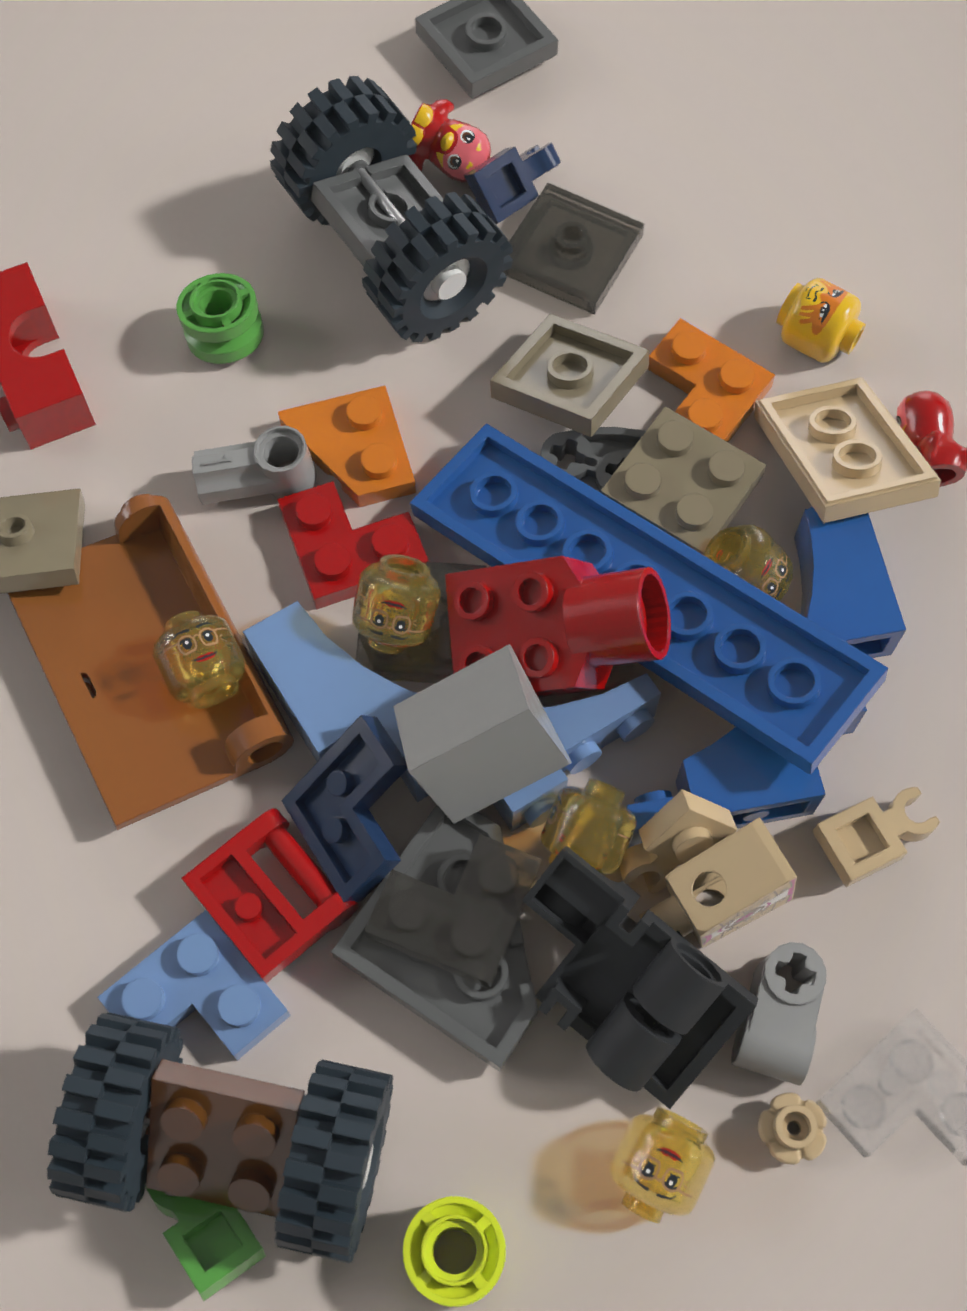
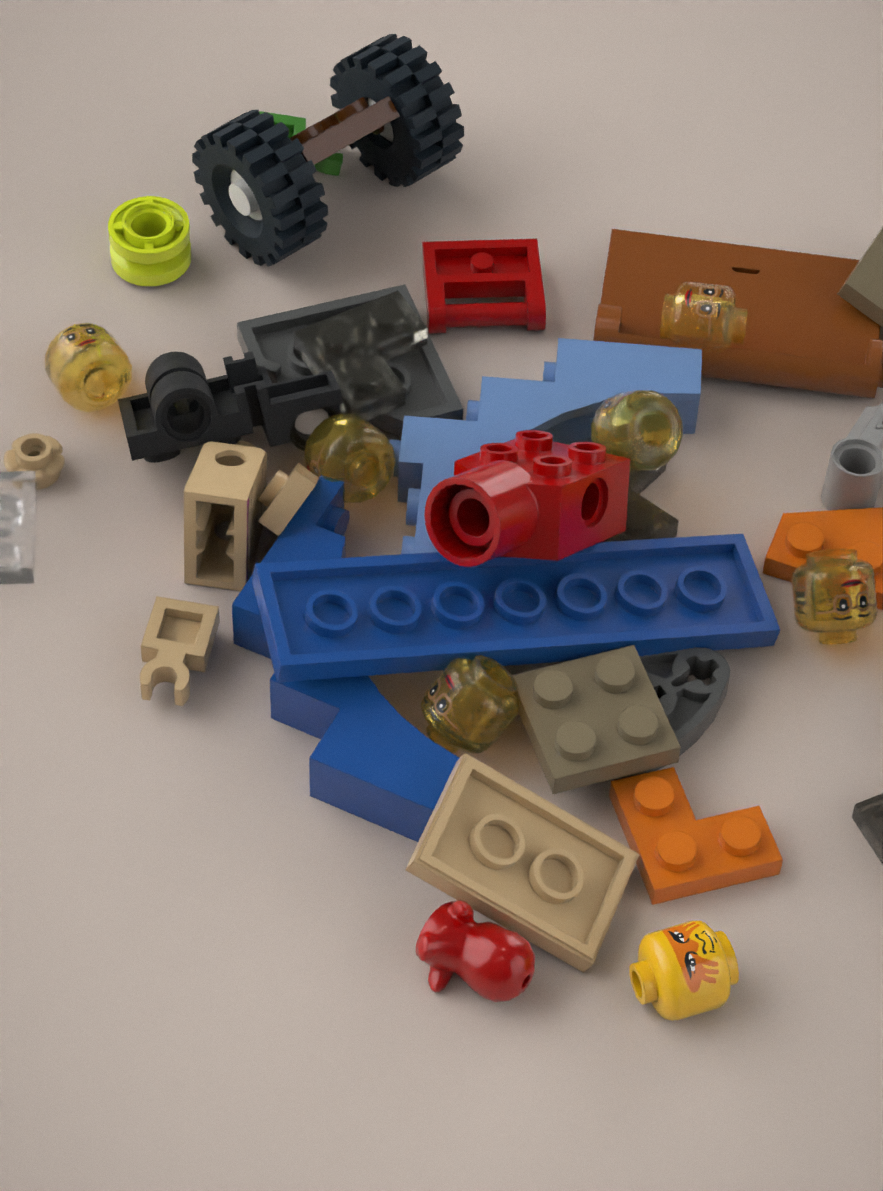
camera: 125 degrees right, 15 degrees down
(204, 973) = (466, 213): medium blue plate -> none
(332, 551) = (741, 476): red plate -> none
(334, 806) = (514, 347): dark blue plate -> none
(427, 400) = (834, 595): none -> clear yellow head
(478, 736) = (478, 396): light grey slope -> none
(570, 374) = (781, 717): dark tan plate -> none
(782, 1028) = (112, 498): light grey piece -> none

